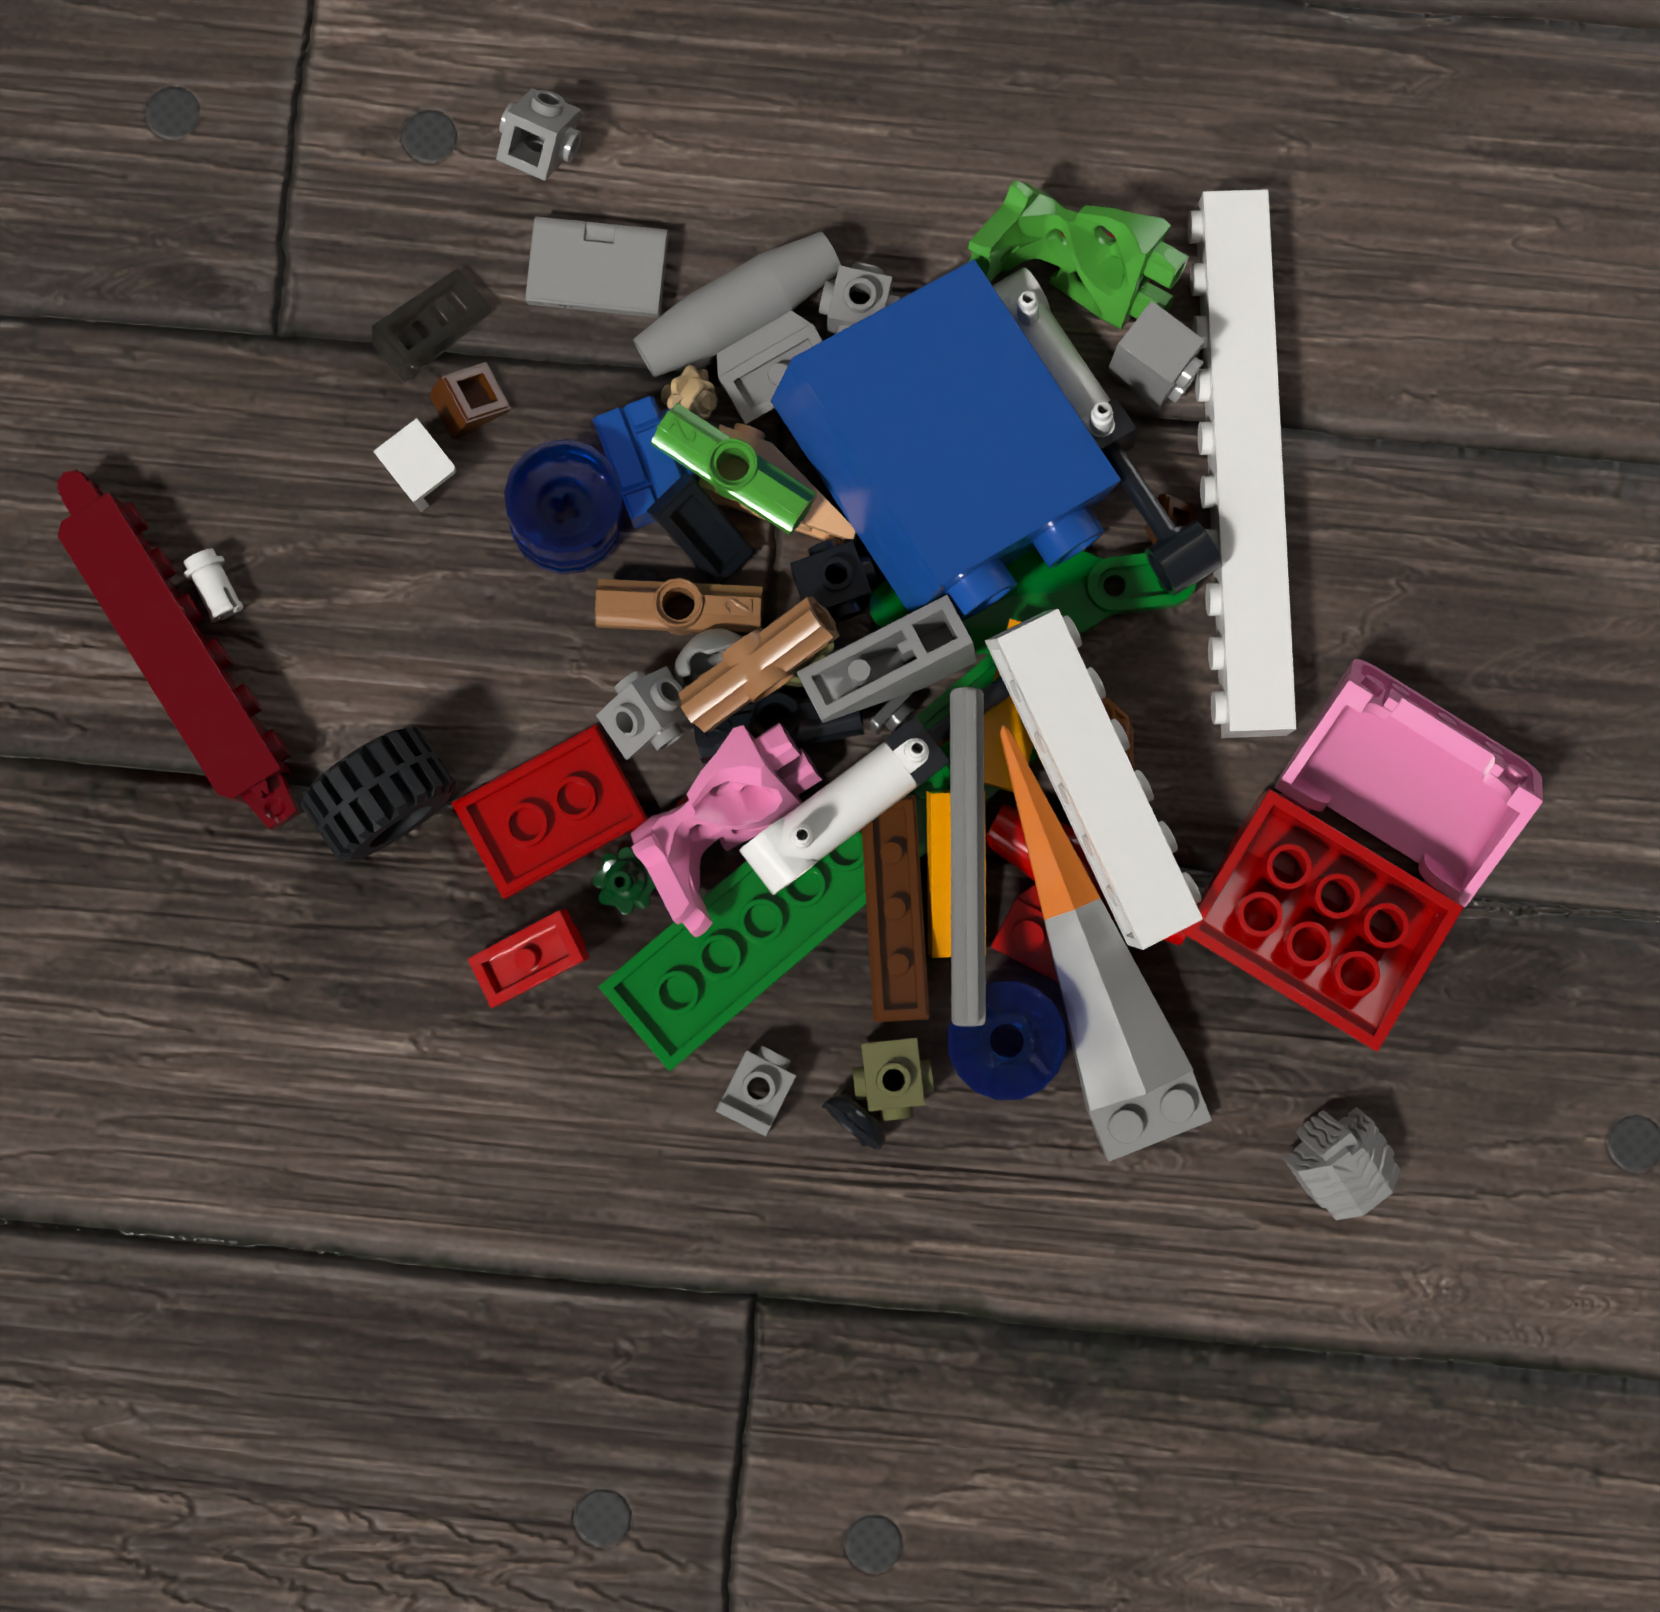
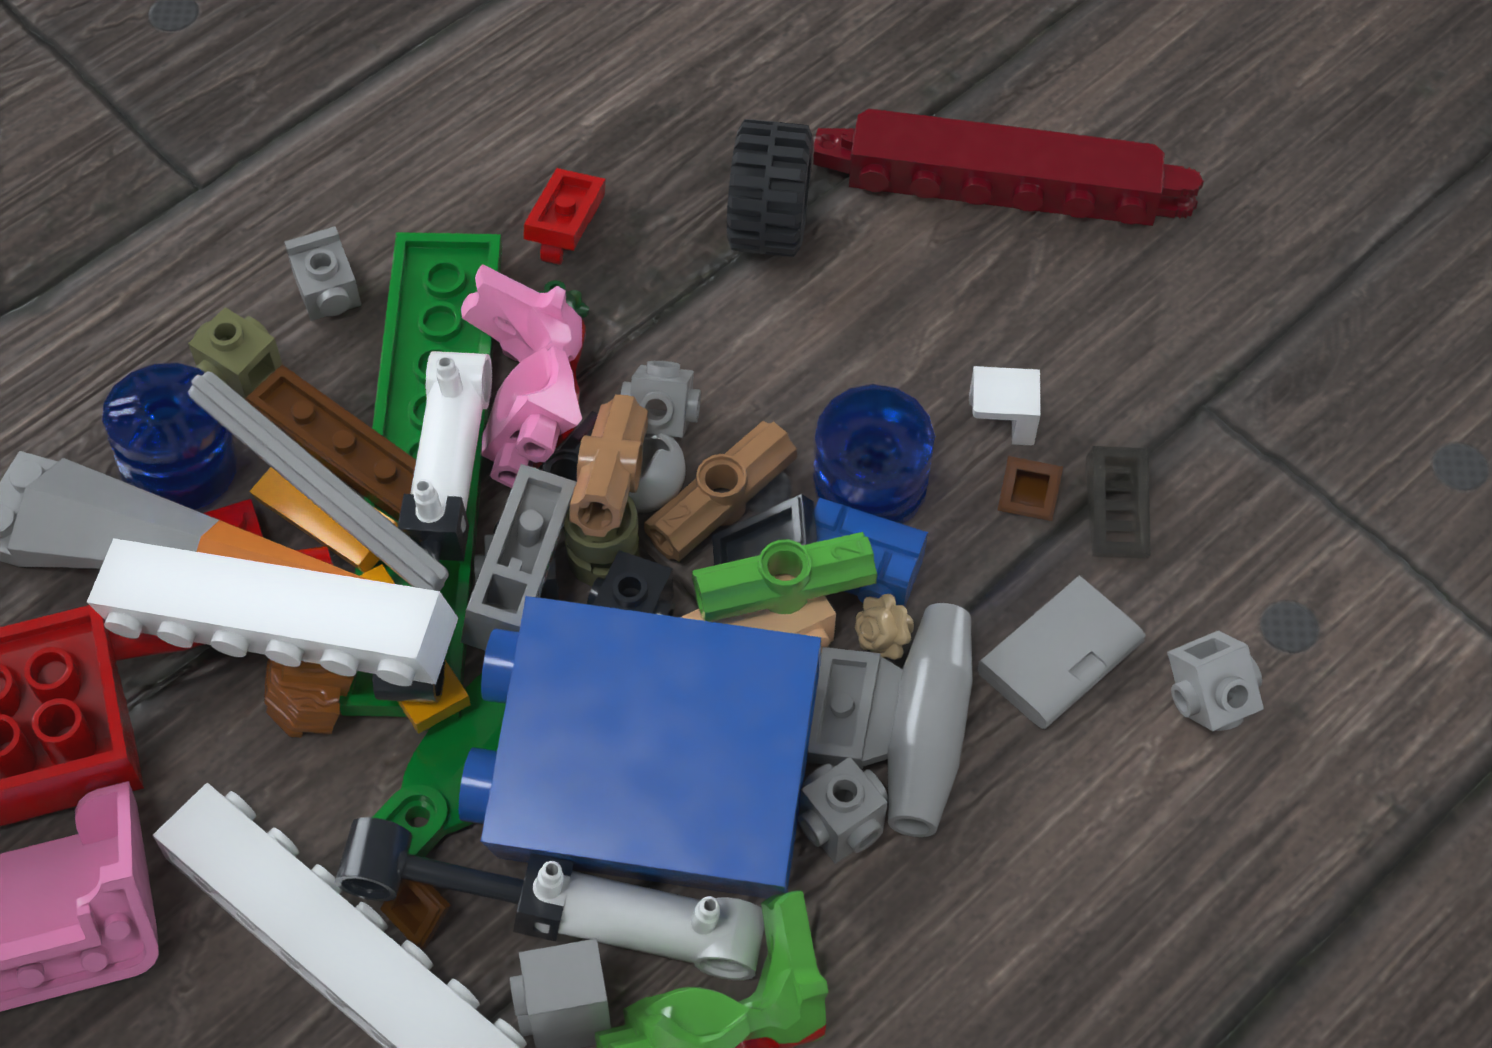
camera: 130 degrees right, 25 degrees down
(212, 584) = (1037, 226): white pin -> none
(550, 812) = (656, 305): red tile -> none
(855, 1119) = (239, 302): black piece -> none

